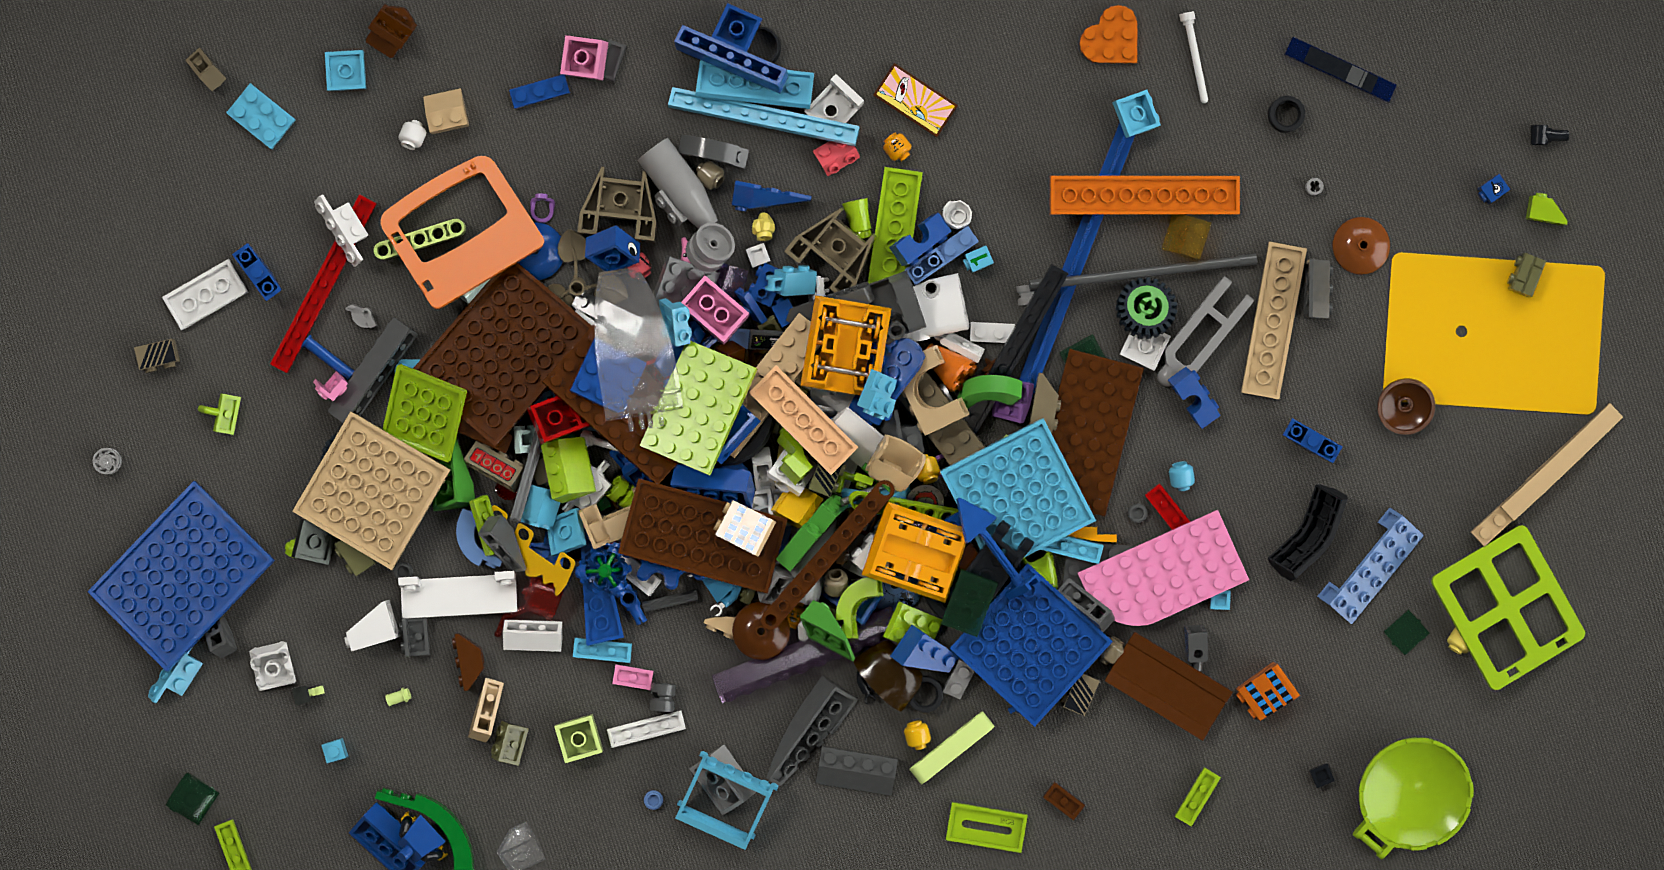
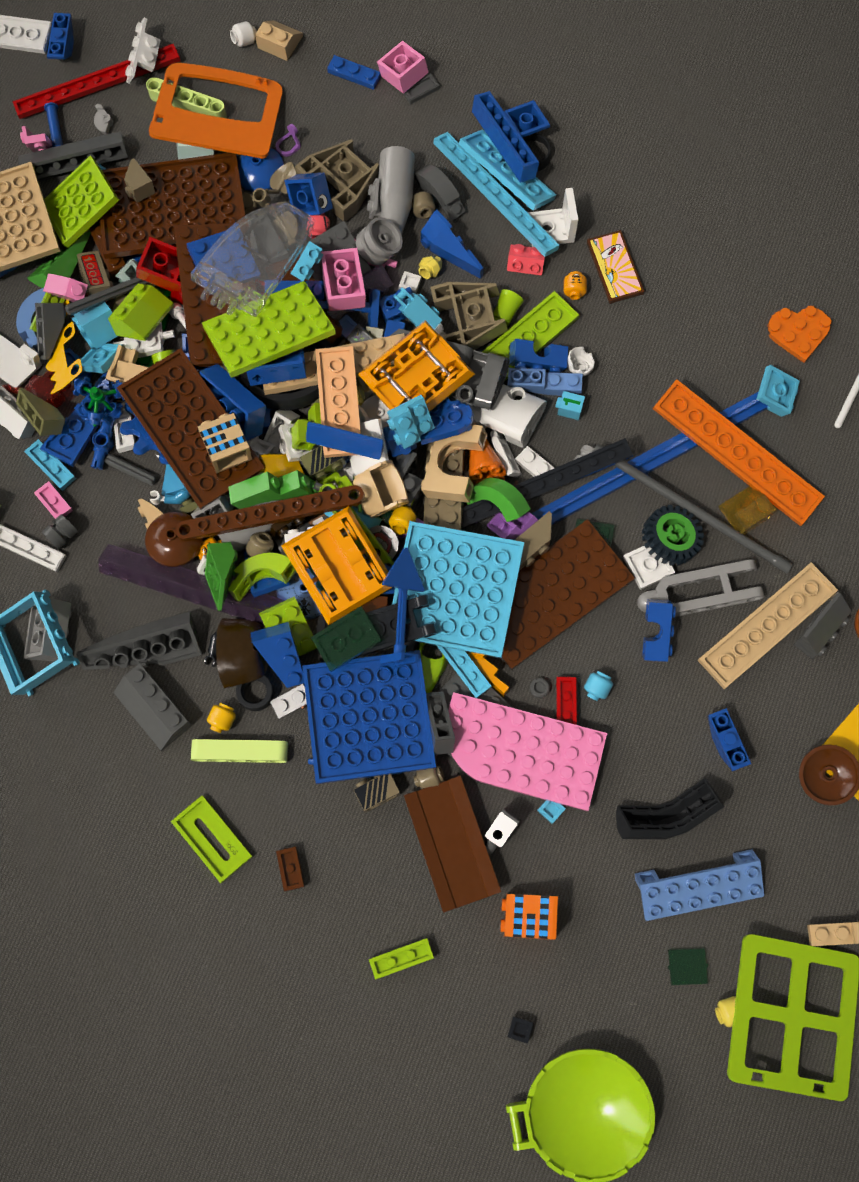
camera: 40 degrees right, 15 degrees down
(462, 358) = (138, 182): none -> dark tan slope
(491, 500) = (65, 287): none -> bright pink slope
(566, 619) = (42, 415): none -> olive slope
(839, 452) = (344, 440): none -> blue slope

